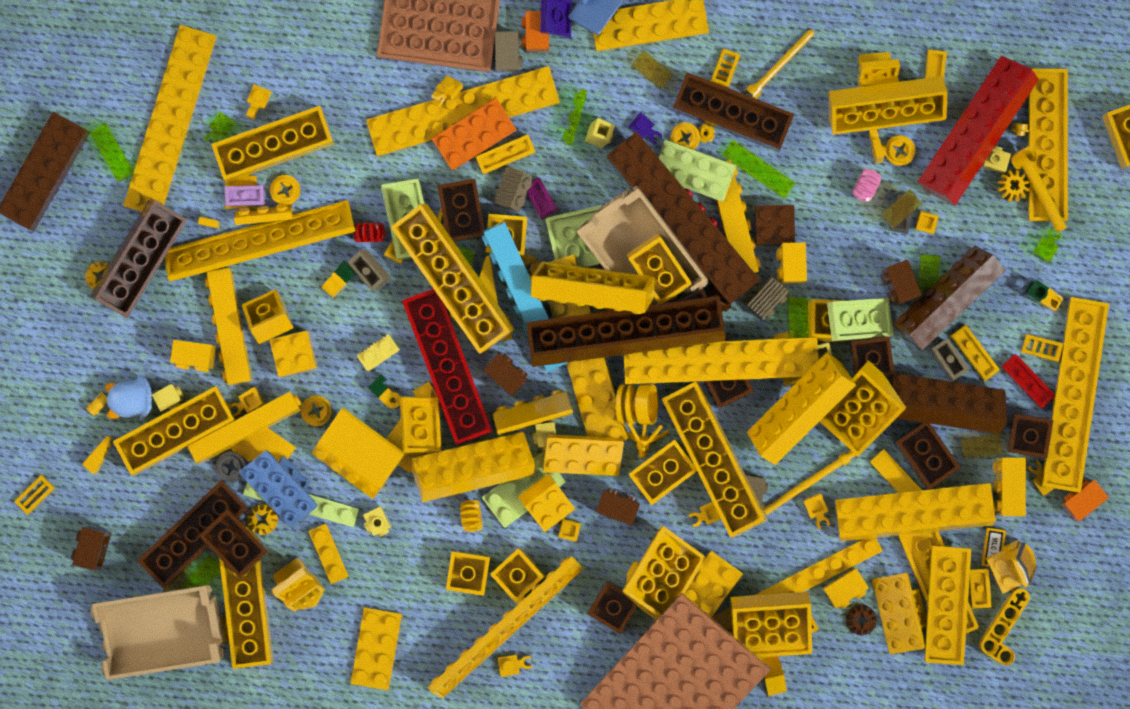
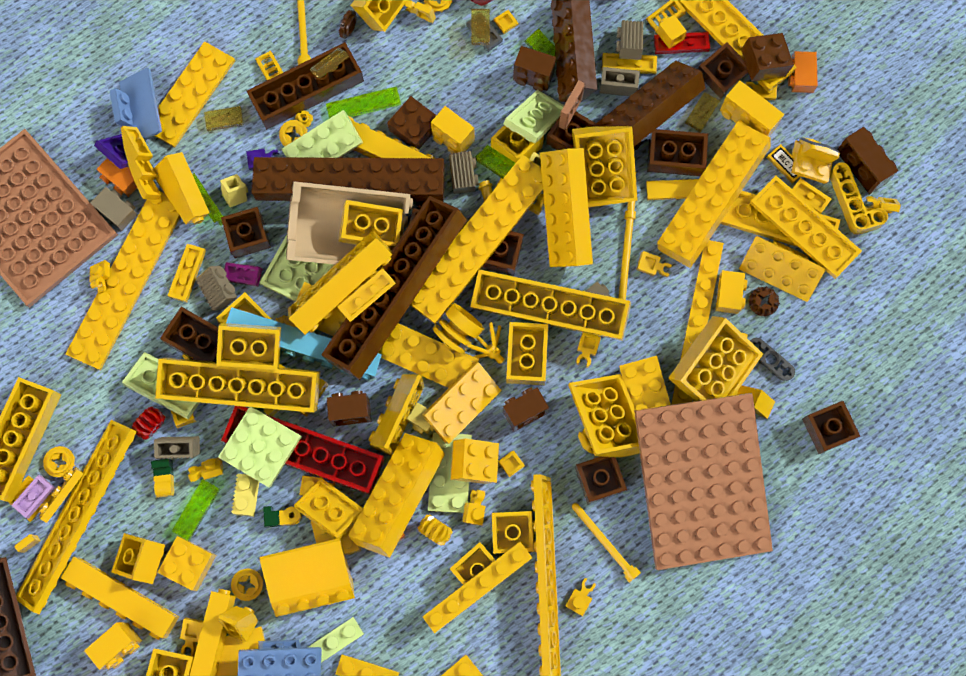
camera: 50 degrees left, 10 degrees down
(285, 430) = (239, 622): none -> yellow slope
(337, 324) = (195, 510): none -> clear neon green plate
(373, 307) = (208, 469): none -> yellow plate
(377, 522) = (376, 611): light yellow brick -> none
(421, 334) = (260, 446): none -> yellowish green plate
(455, 583) = (477, 587): none -> yellow plate
(474, 133) = (149, 282): orange plate -> none
(486, 264) = (248, 346): none -> yellow brick
(510, 532) = (474, 511): none -> yellow plate
(562, 36) = (138, 159): none -> yellow slope
(563, 684) = (629, 571): none -> yellow piece
(565, 92) = (180, 188): none -> yellow slope
(574, 173) = (245, 232): none -> reddish brown brick
(599, 318) = (366, 294): none -> yellow plate
(764, 119) = (329, 63): none -> clear yellow plate
(767, 330) = (485, 188): none -> yellow pin
(811, 676) = (778, 373): none -> dark grey beam
(813, 99) = (347, 24): none -> reddish brown gear
(866, 185) = (442, 37): bright pink gear -> none
(884, 344) = (571, 105): none -> nougat tile
(994, 338) = (631, 40): none -> dark tan brick
(1022, 651) = (888, 204): none -> yellow plate
(1027, 366) = (671, 31): none -> yellow brick
(1046, 611) = (867, 160): none -> reddish brown brick
(1065, 463) = (767, 57): none -> reddish brown brick

